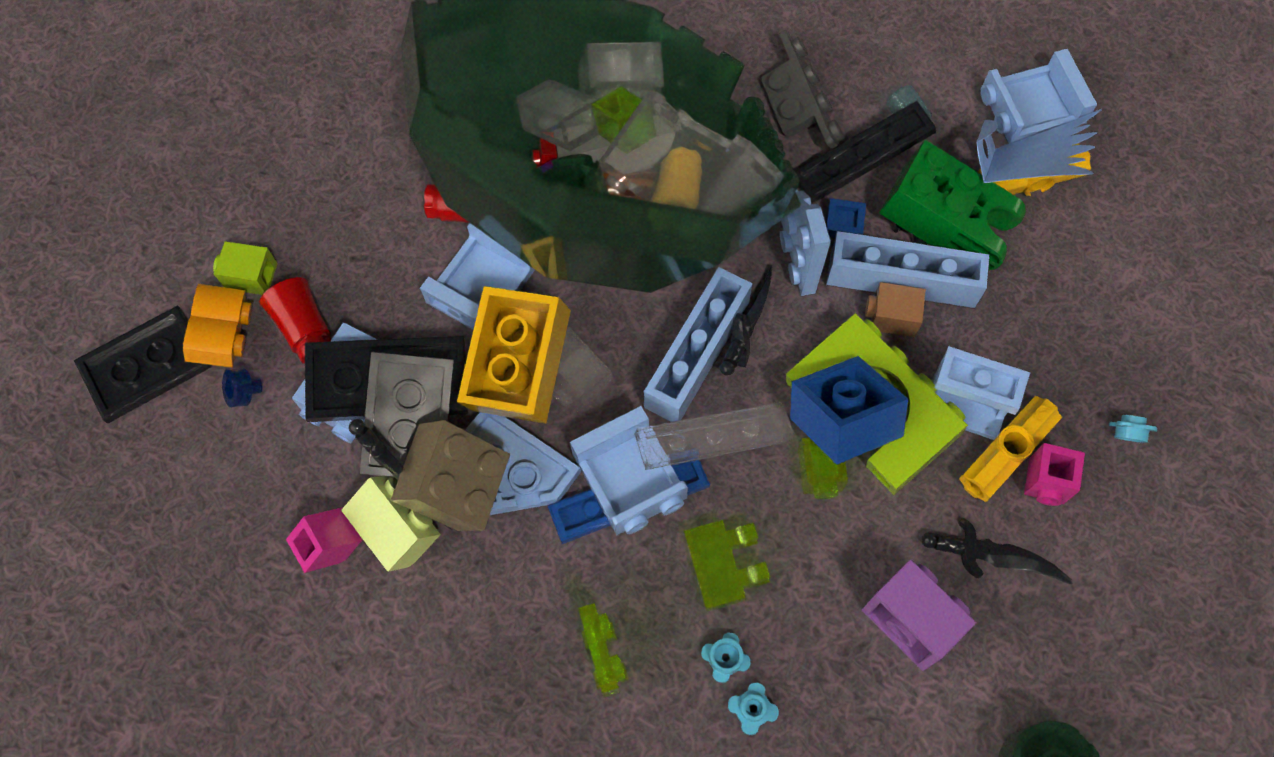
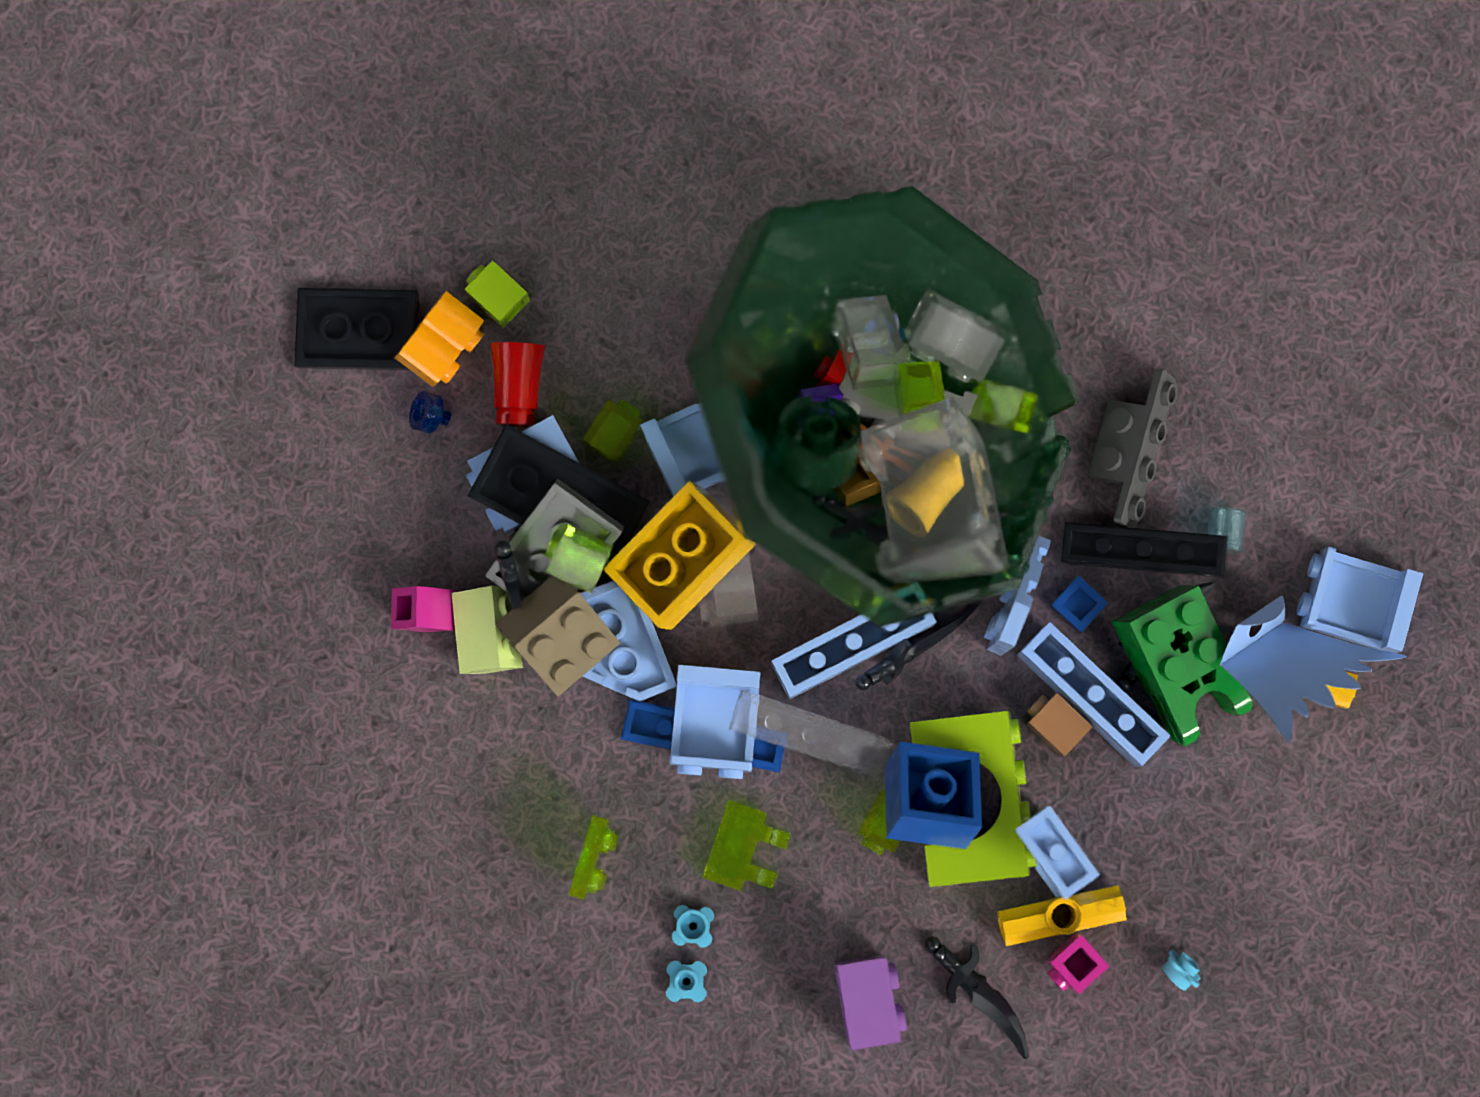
camera: 30 degrees right, 15 degrees up
(402, 310) = (614, 430): none -> clear neon green brick
(427, 400) = (577, 558): none -> clear neon green brick
(696, 101) = (1003, 405): none -> clear neon green brick

